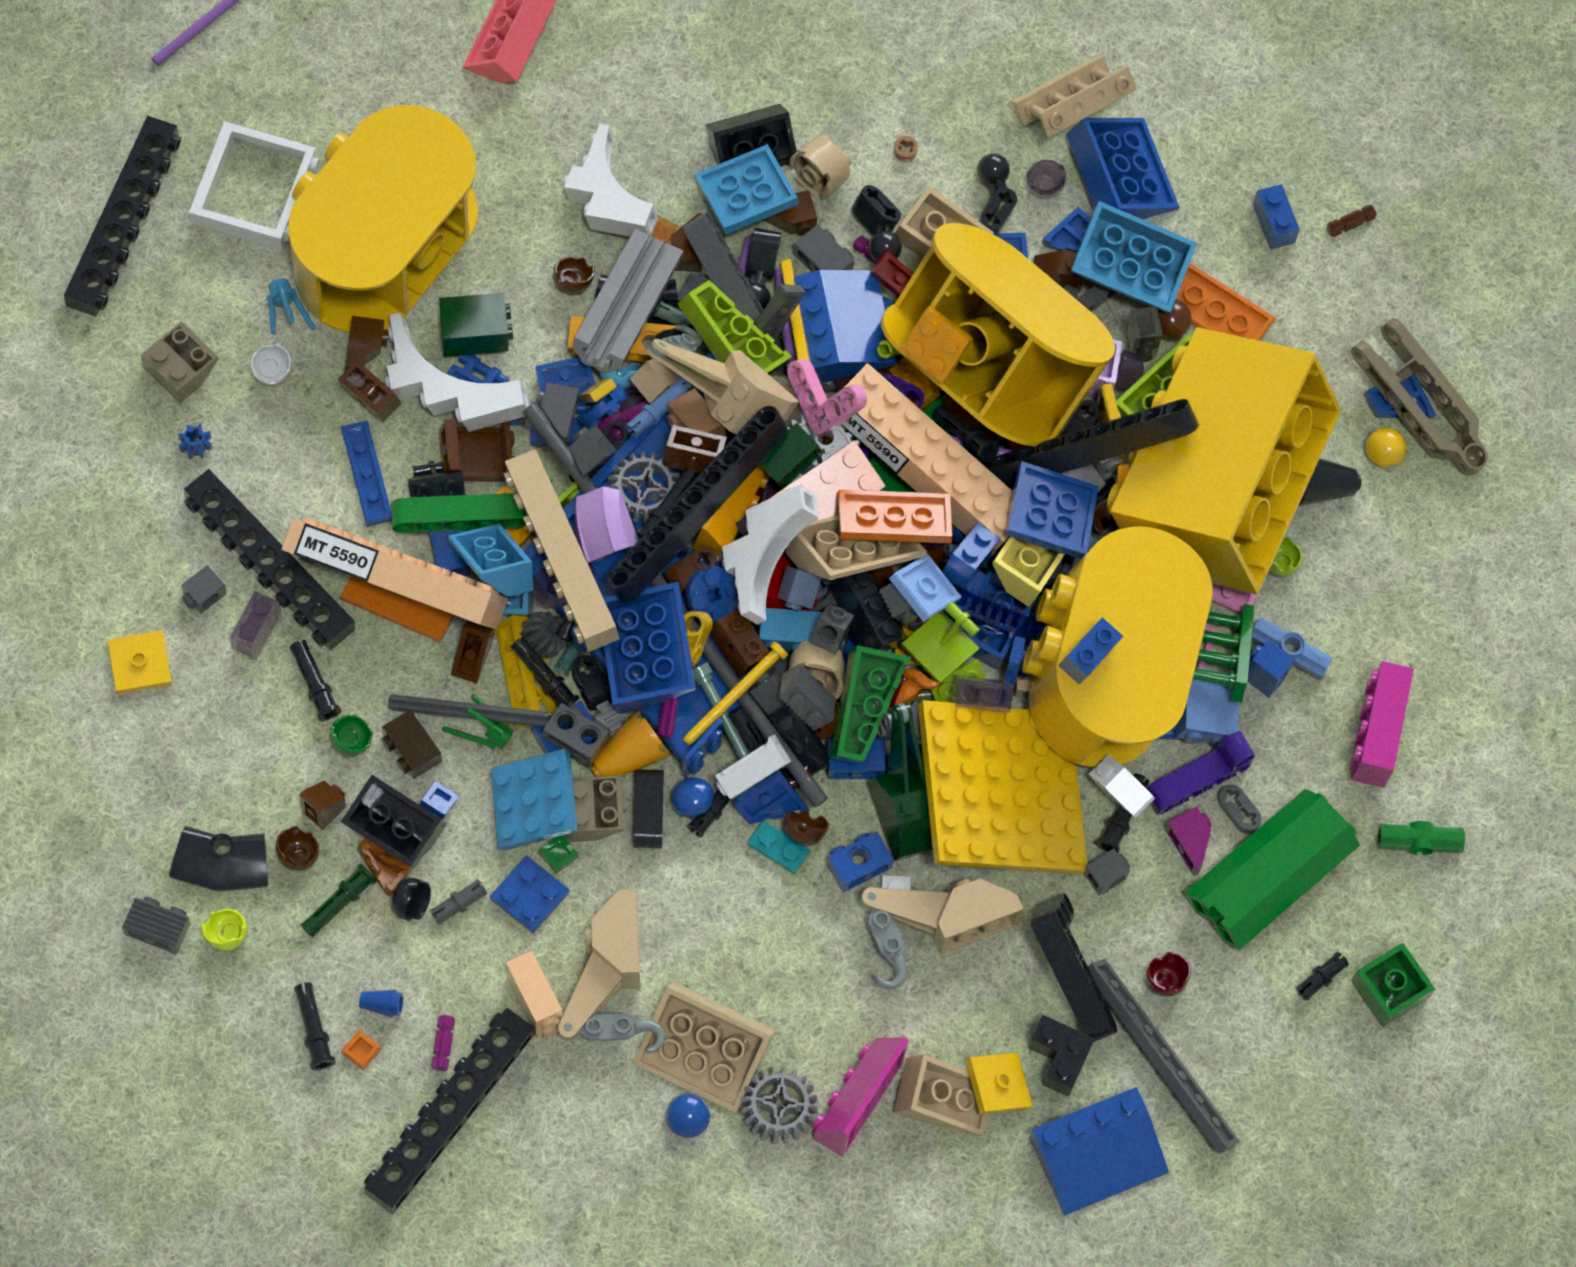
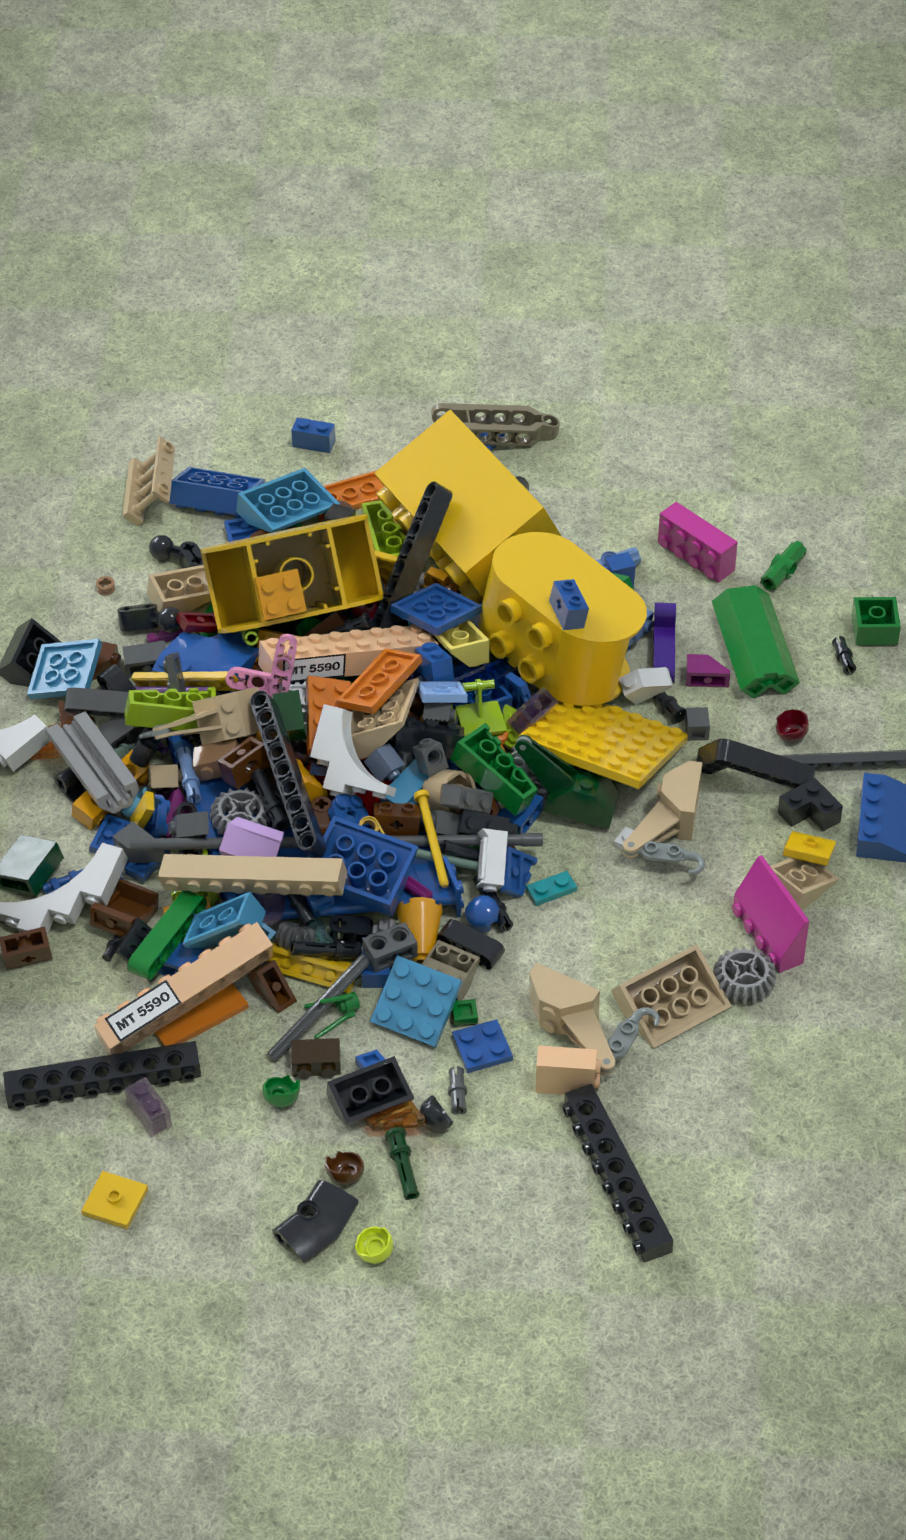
camera: 50 degrees left, 20 degrees down
(156, 924) = (337, 1289): dark grey brick -> none
(203, 590) = (92, 1127): dark grey brick -> none
(316, 1038) = (501, 1229): black pin -> none
(319, 691) = (229, 1095): black pin -> none
(322, 803) = (322, 1134): reddish brown slope -> none
(361, 1050) = (529, 1208): orange tile -> none
(366, 473) = (83, 986): blue tile -> none
(382, 1002) = (503, 1173): blue cone -> none
(443, 1043) = (560, 1153): magenta axle -> none
(567, 269) = (40, 795): reddish brown hair -> none
(687, 1115) = (715, 1033): blue hair -> none
(804, 829) = (553, 864): reddish brown hair -> none
(821, 166) = (82, 622): tan brick -> none
(850, 874) = (596, 846): blue brick -> none
(1049, 175) = (191, 526): hair -> none
(1244, 805) = (700, 641): dark grey beam -> none
(1351, 220) = (344, 407): reddish brown axle -> none
(1386, 447) = (511, 459): yellow hair -> none

